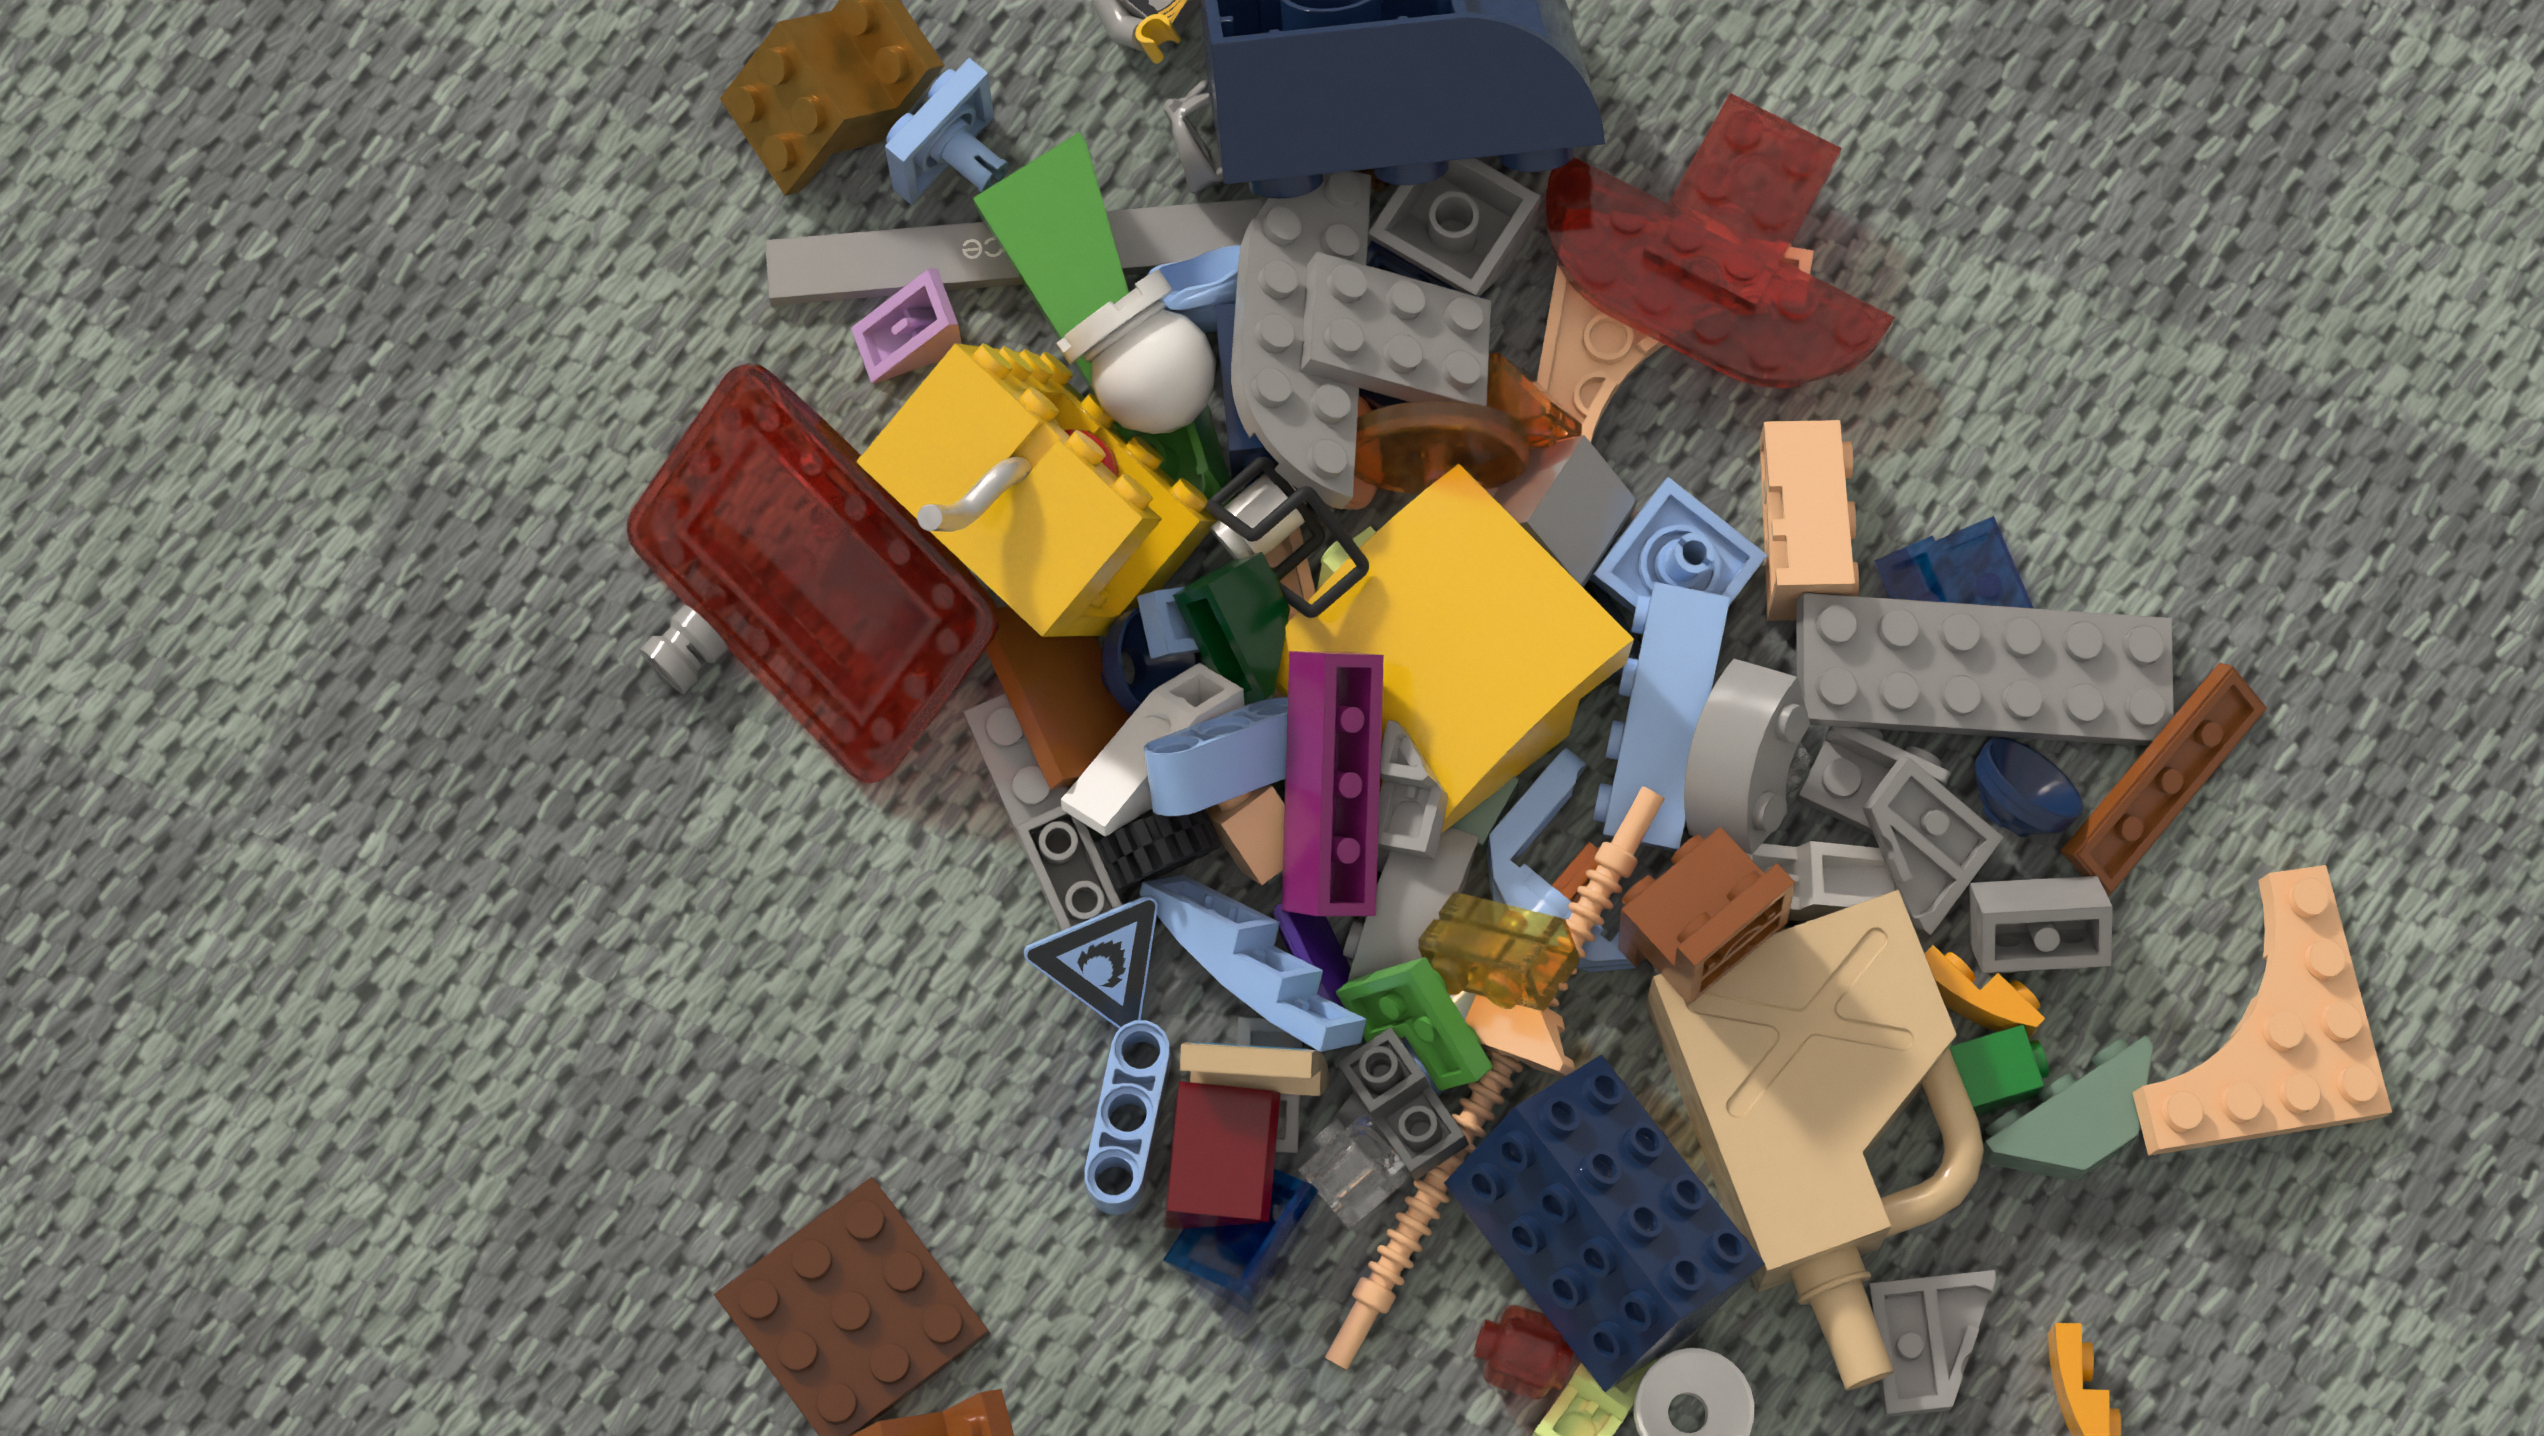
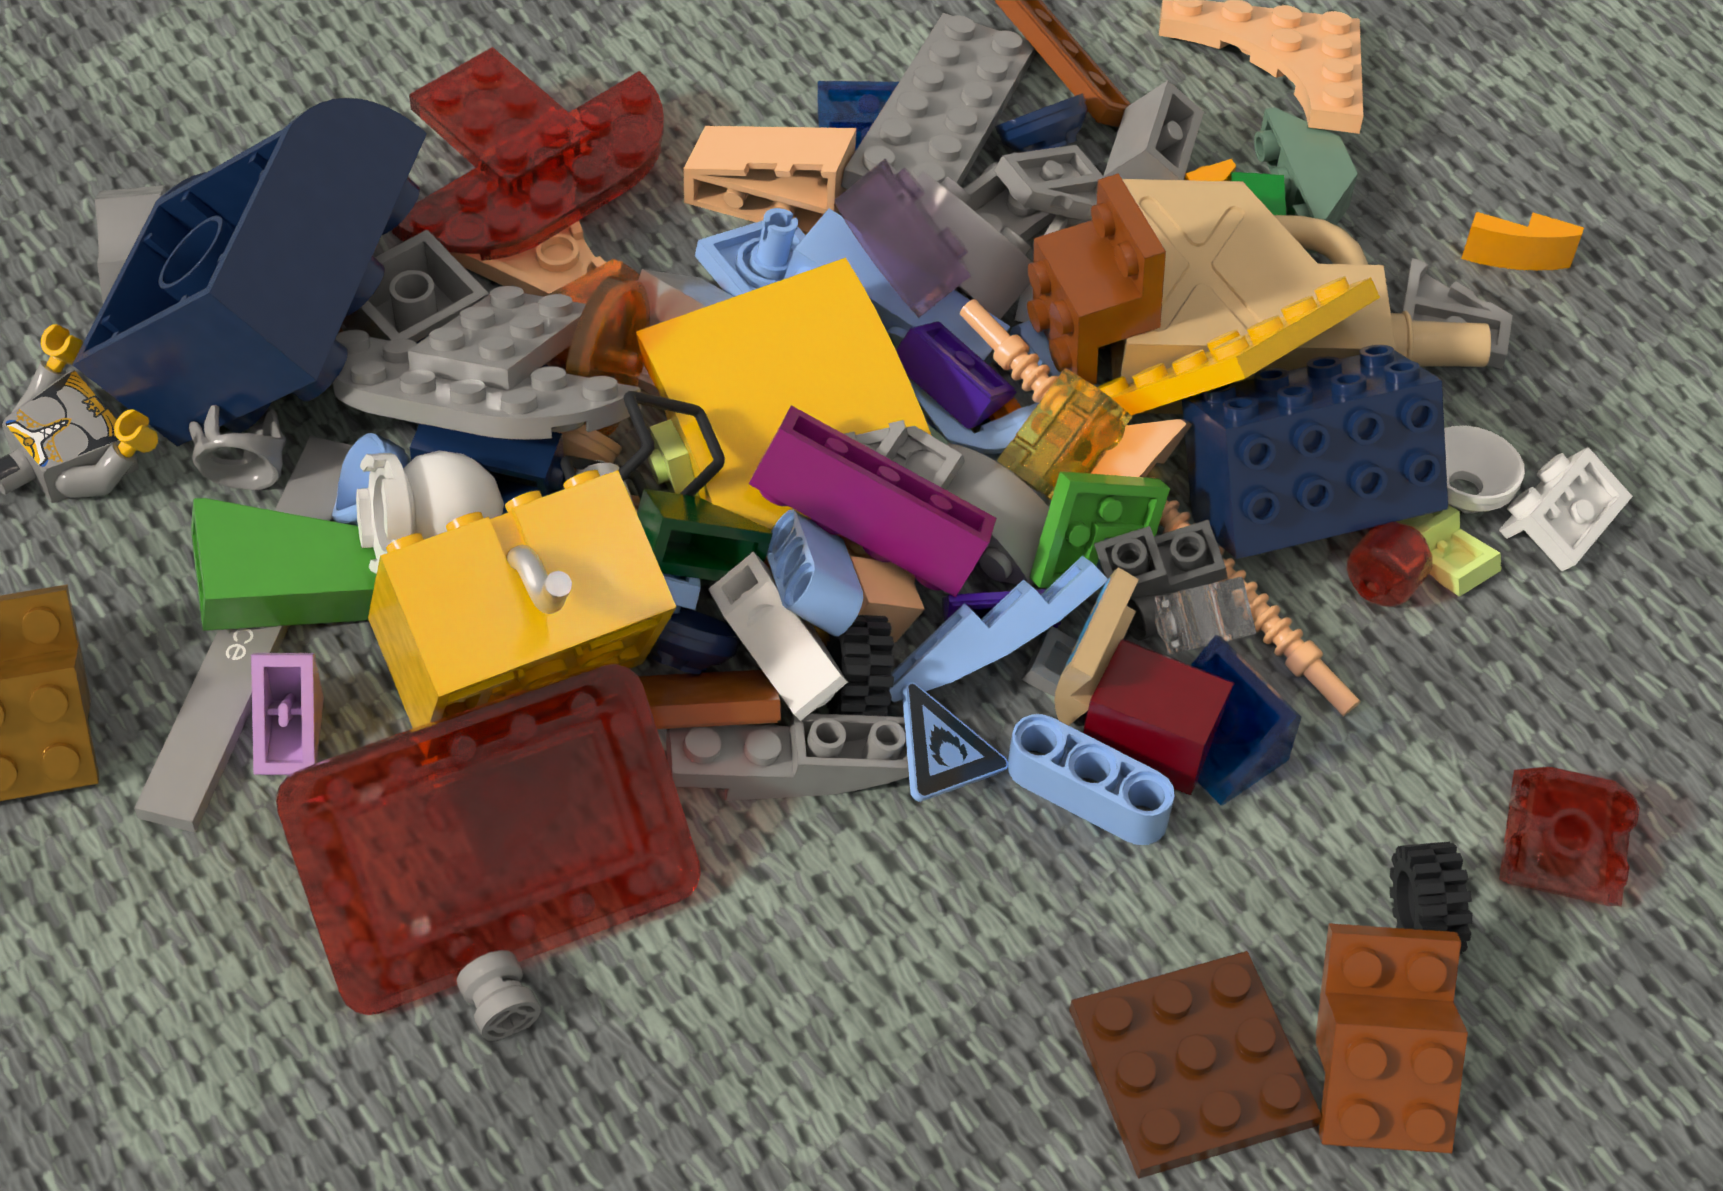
camera: 75 degrees left, 20 degrees down
(945, 135) = (125, 622): light blue plate -> none
(1573, 809) = (953, 374): none -> dark purple slope
(1635, 1087) = (1238, 356): none -> yellow plate
(1688, 688) = (902, 236): none -> clear purple brick

